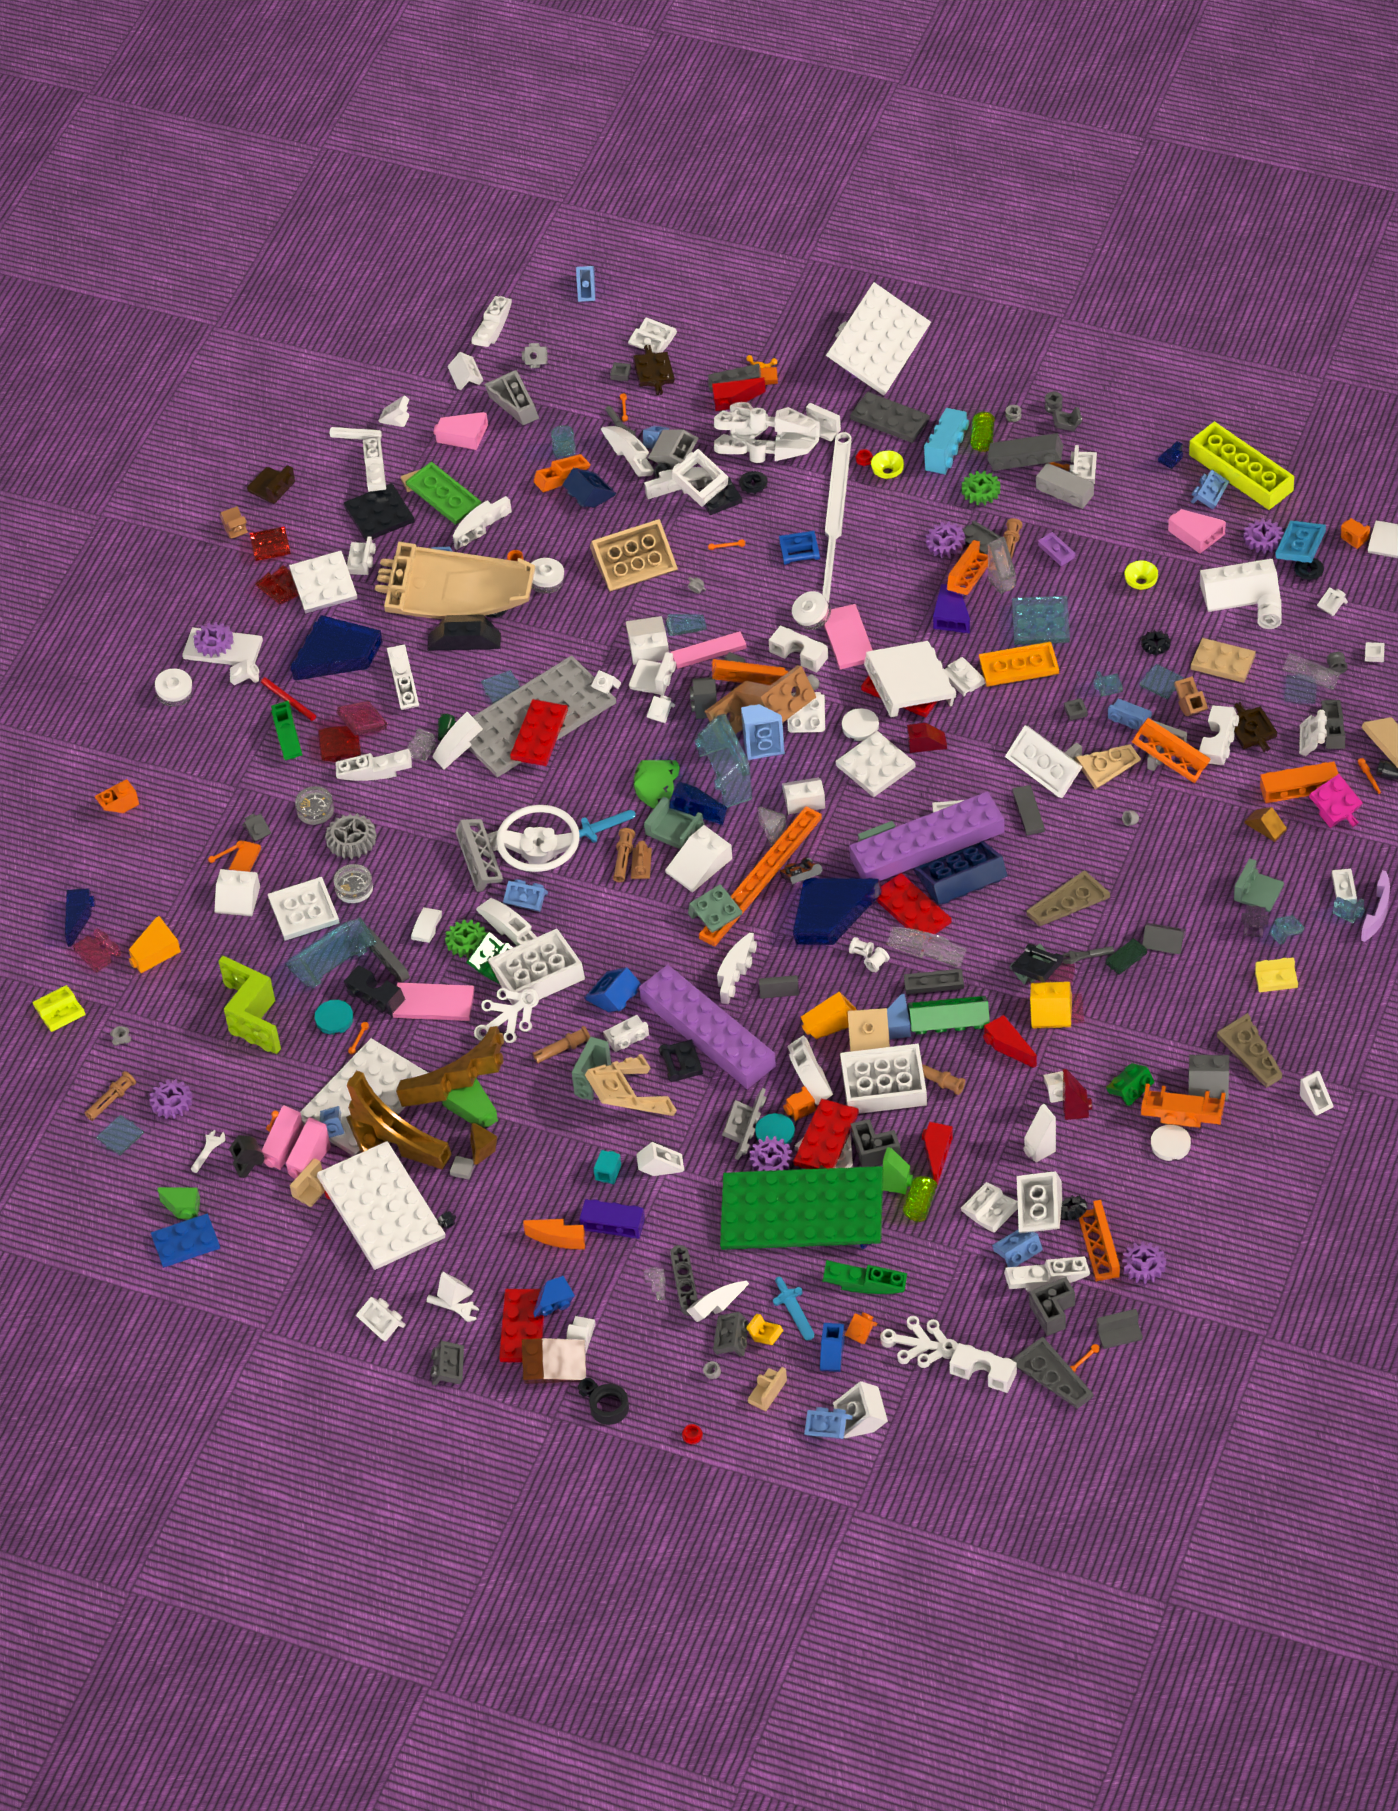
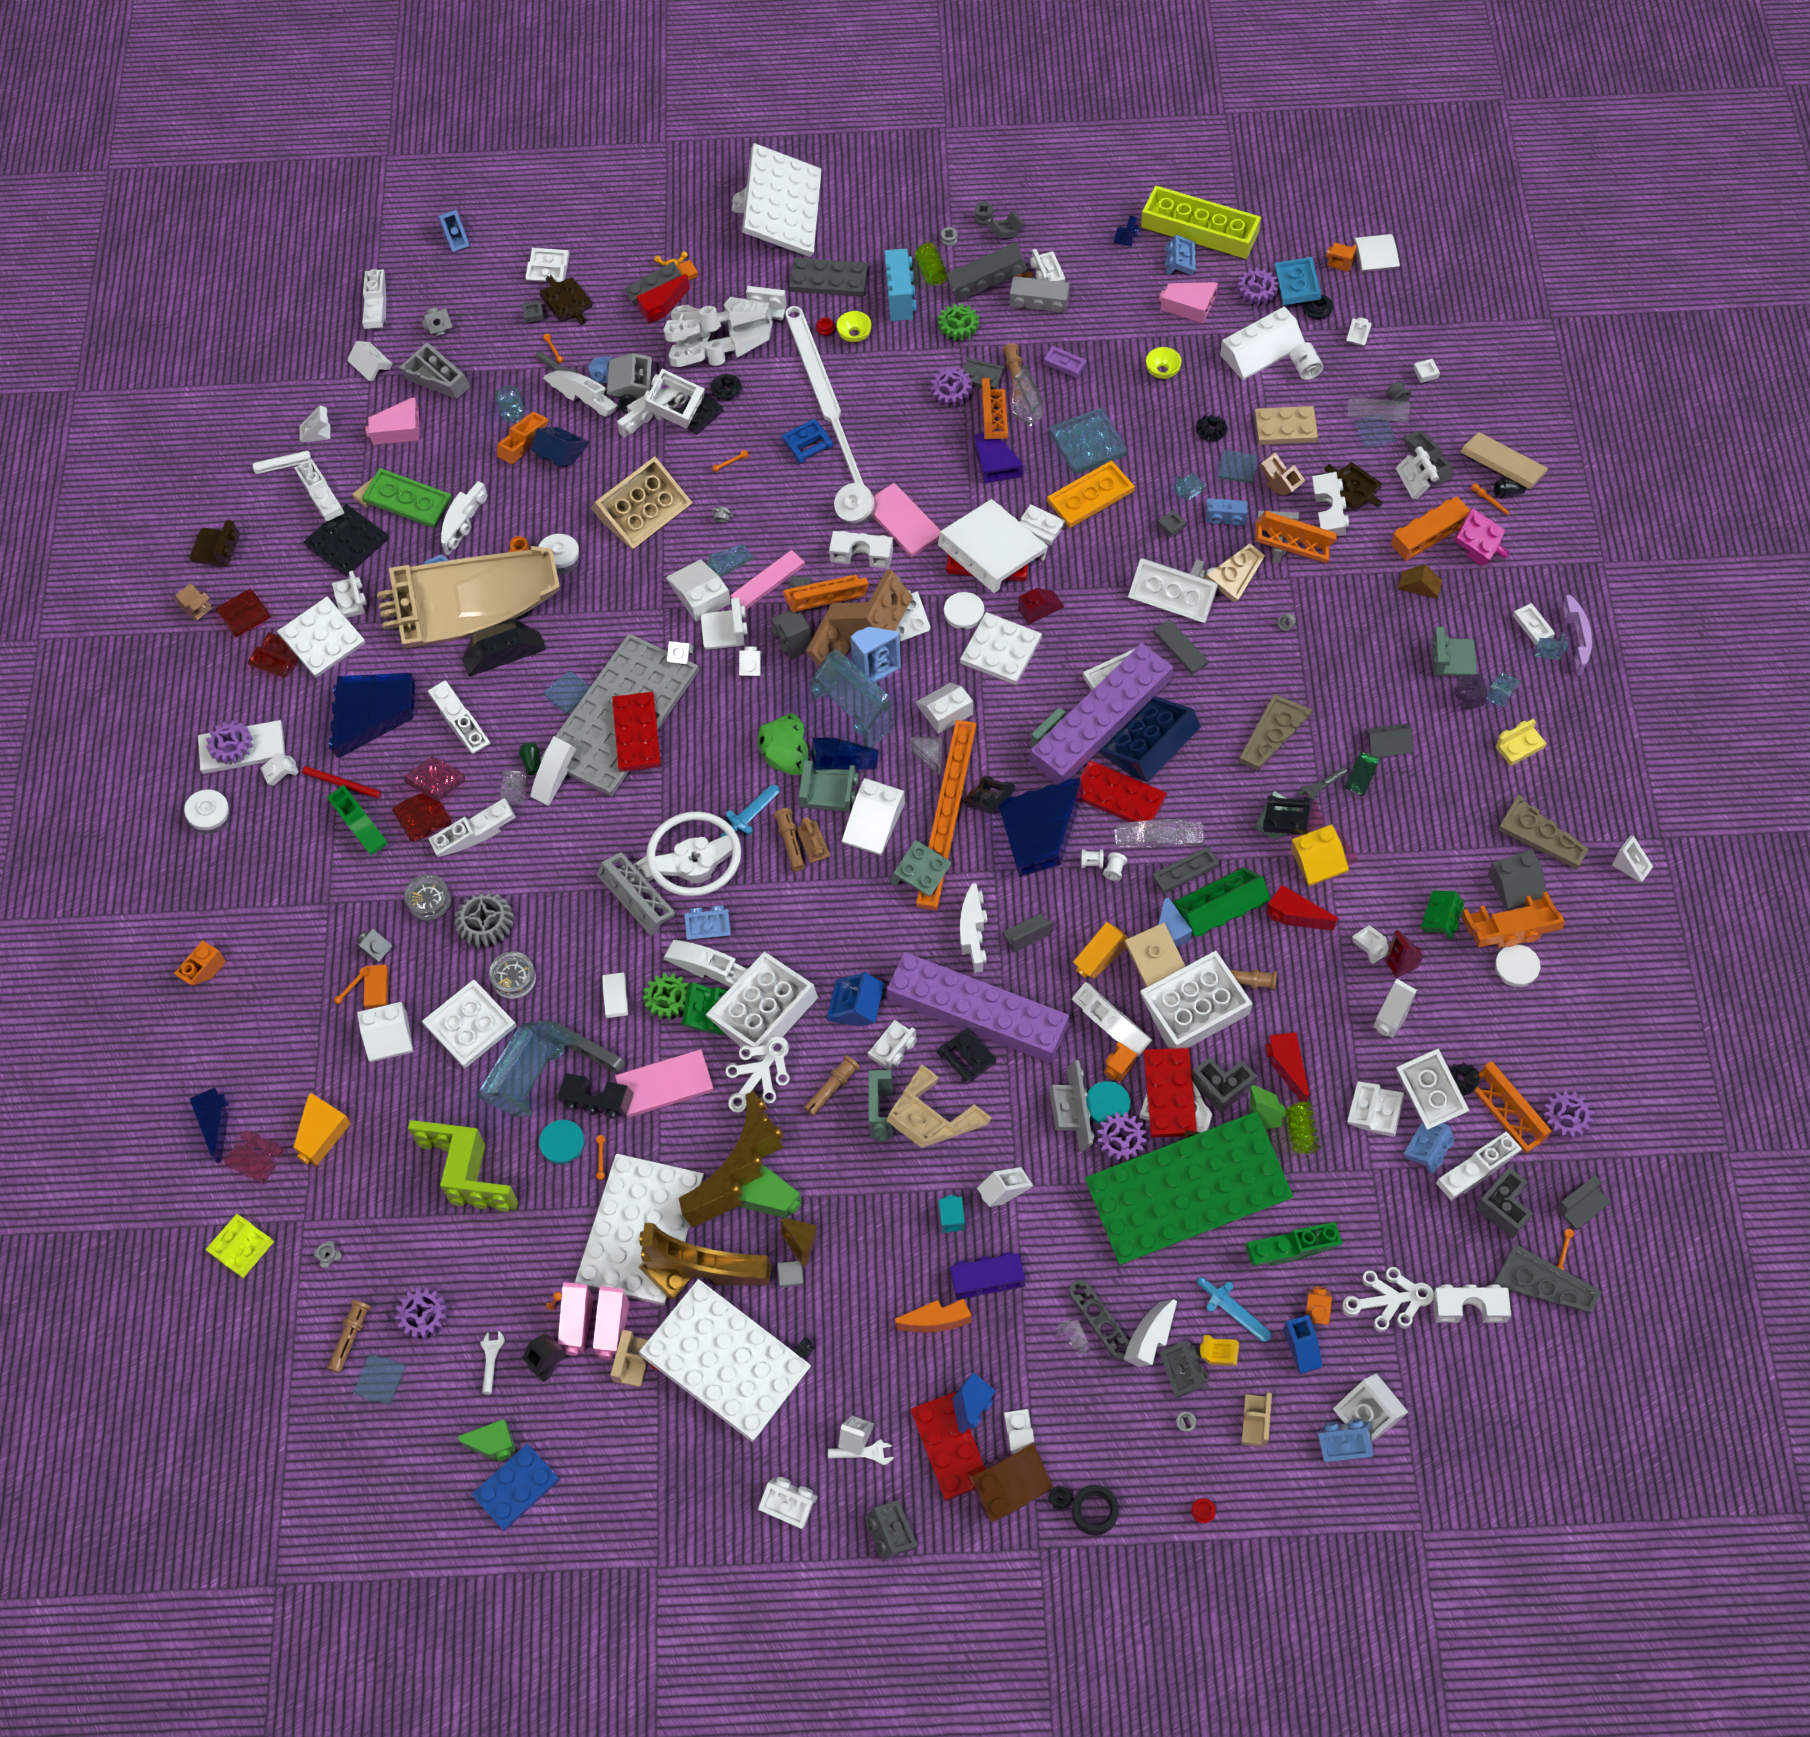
camera: 25 degrees left, 10 degrees up
(332, 1119) = (621, 1275): medium blue bracket -> none

